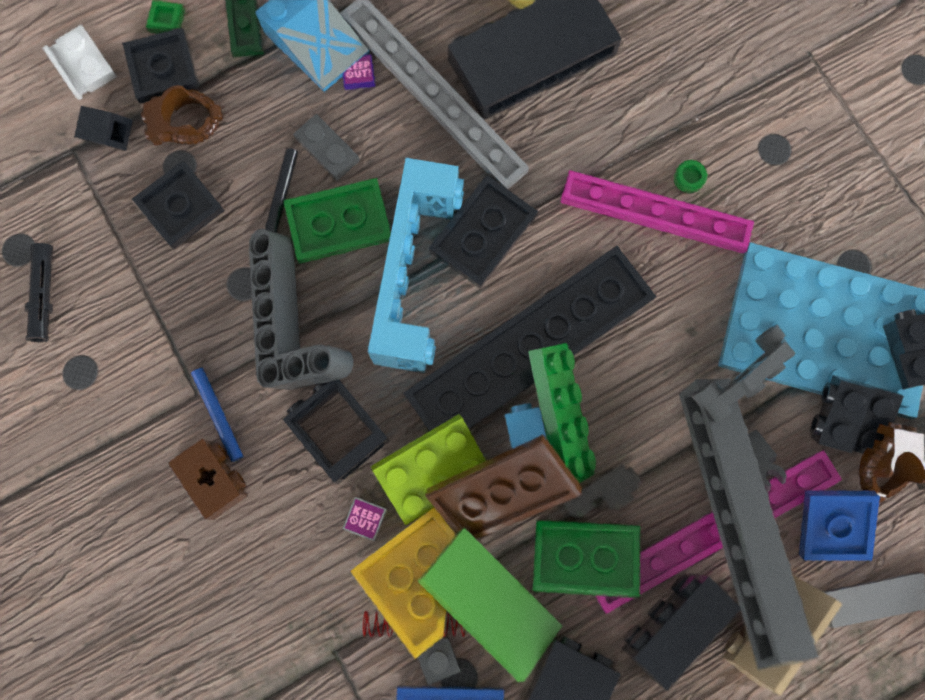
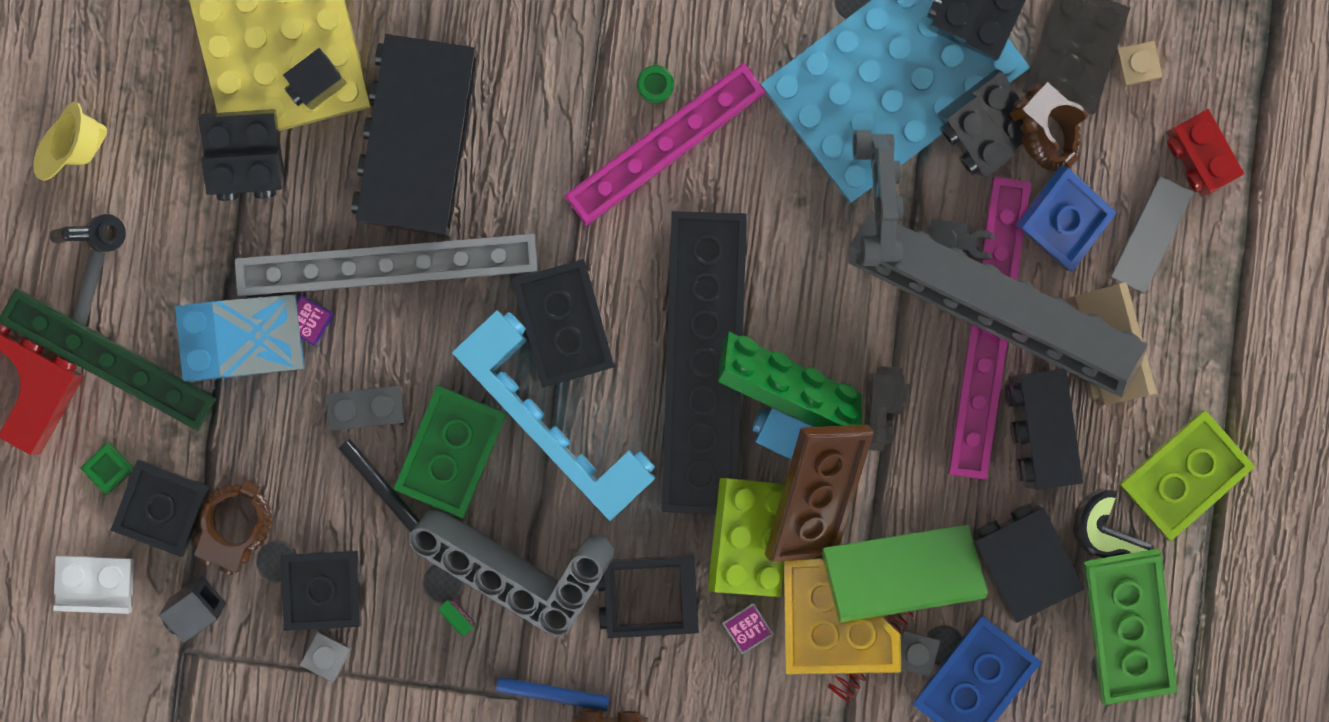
camera: 45 degrees left, 10 degrees up
(134, 242) = (326, 656): none -> light grey plate
(224, 306) = (456, 616): none -> green tile
(587, 559) = (928, 460): green tile -> none

